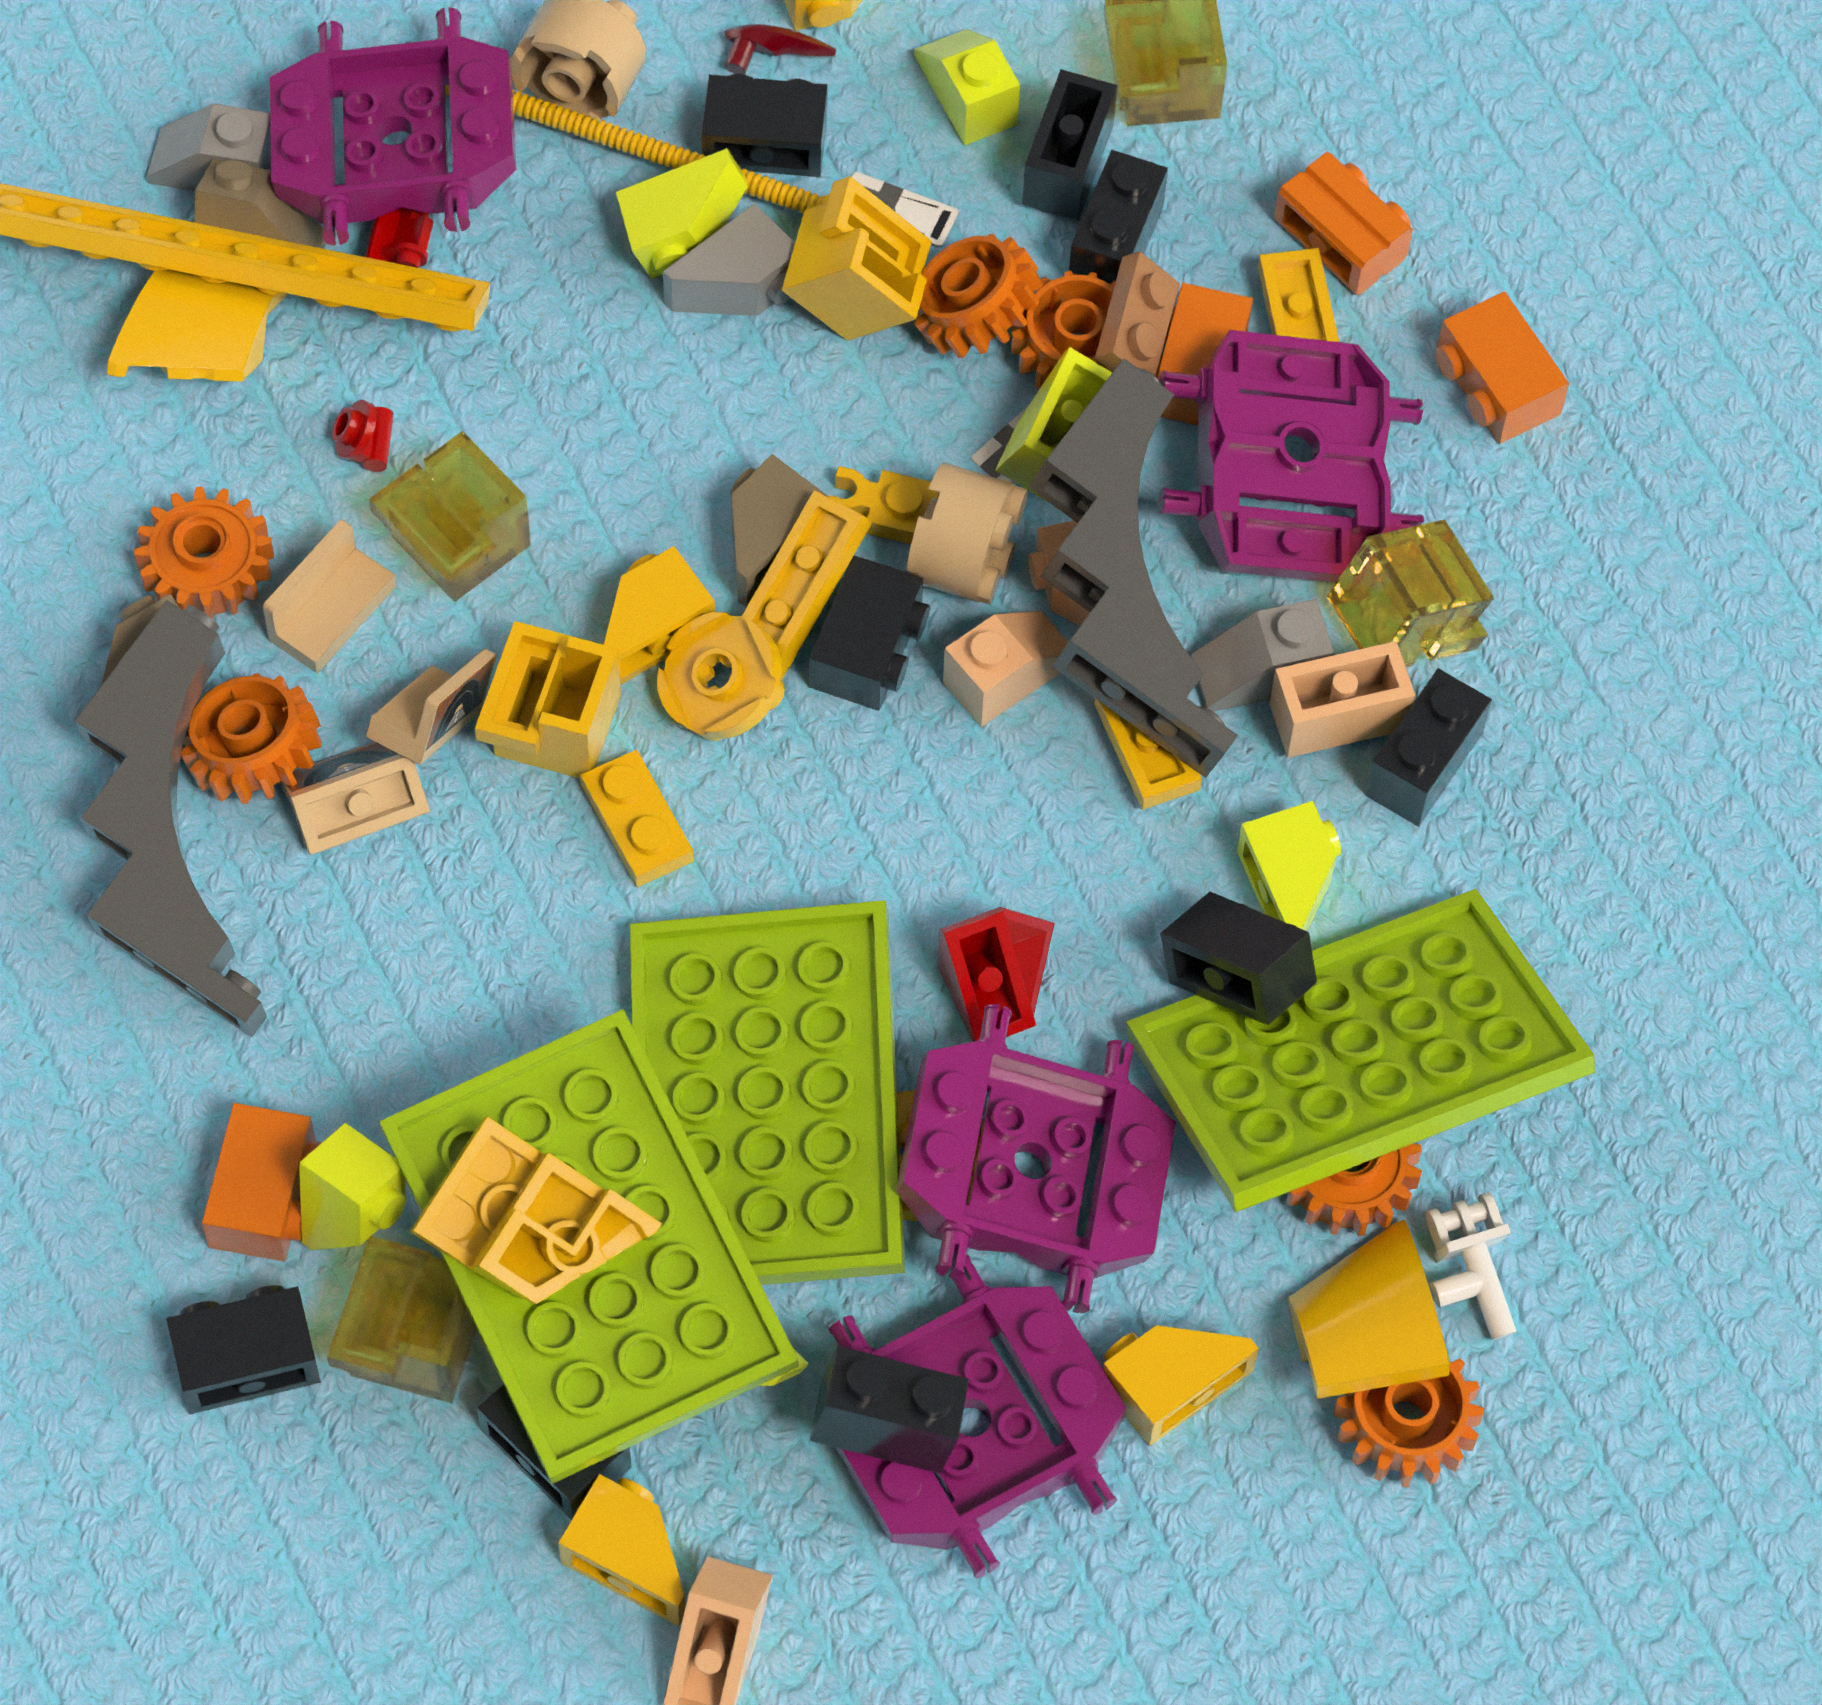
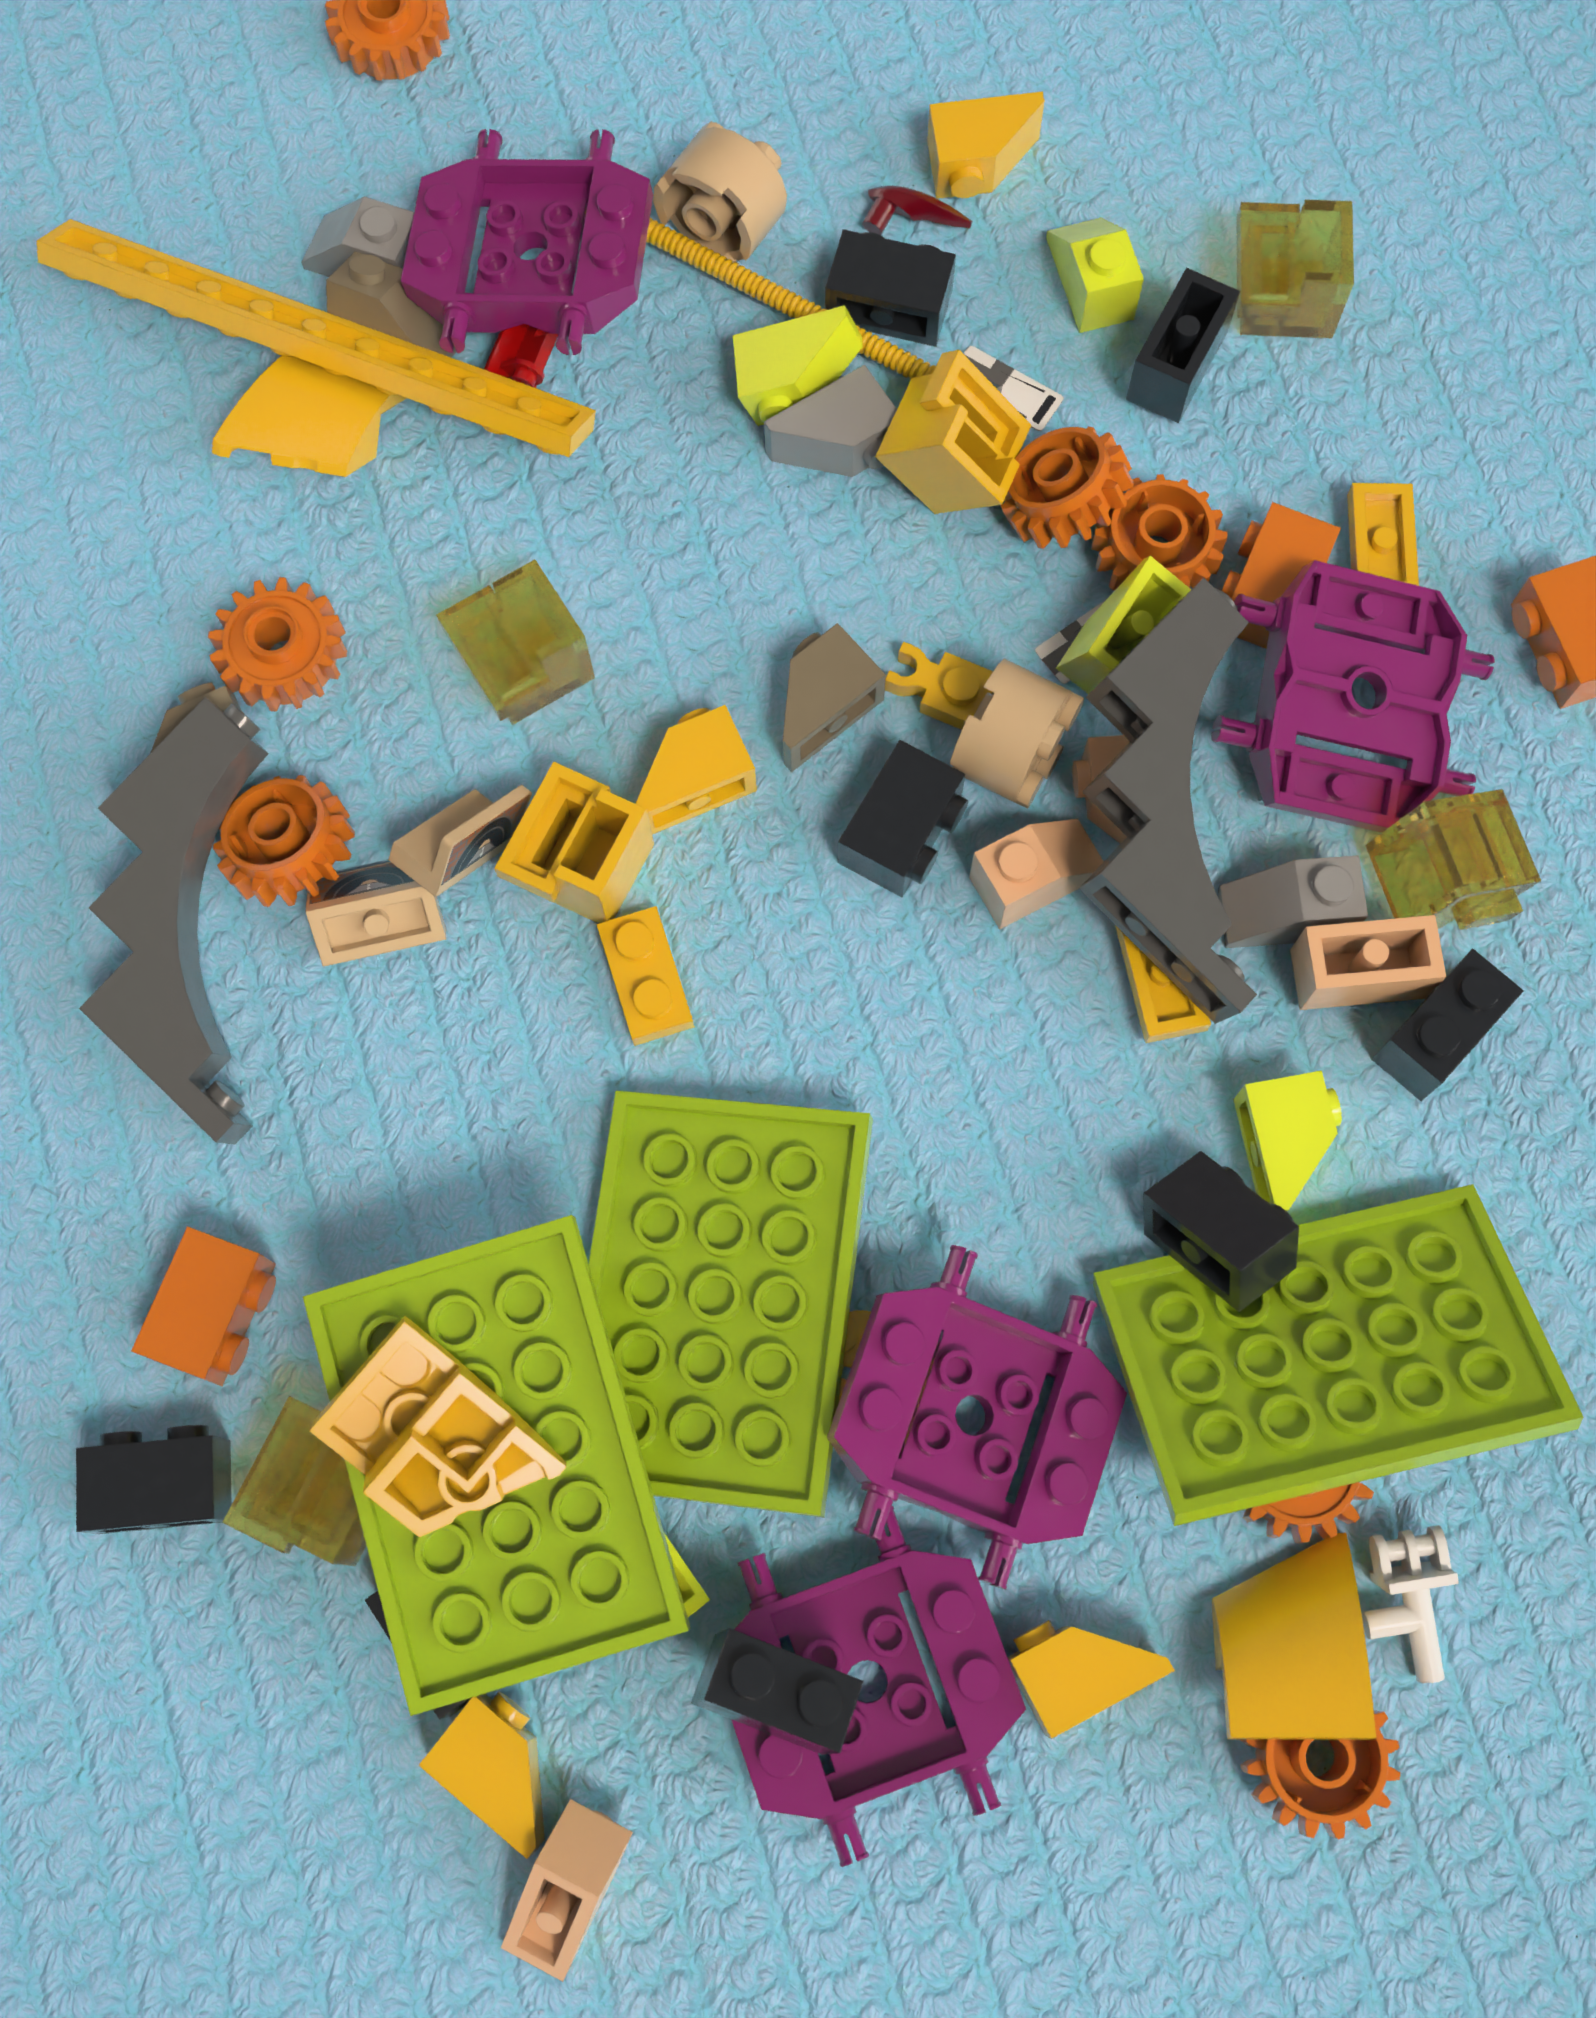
camera: 15 degrees right, 10 degrees up
(326, 599) = (385, 705): tan panel -> none
(348, 1191) = (273, 1348): neon yellow slope -> none
(364, 434) = (455, 545): red plate -> none
(751, 688) = (782, 848): yellow plate -> none
(806, 573) = (839, 763): yellow plate -> none
(995, 961) = (972, 1196): red slope -> none
(1118, 215) = (1219, 428): black brick -> none
(1137, 314) = (1222, 531): medium nougat plate -> none
(1349, 223) = (1442, 458): orange brick -> none

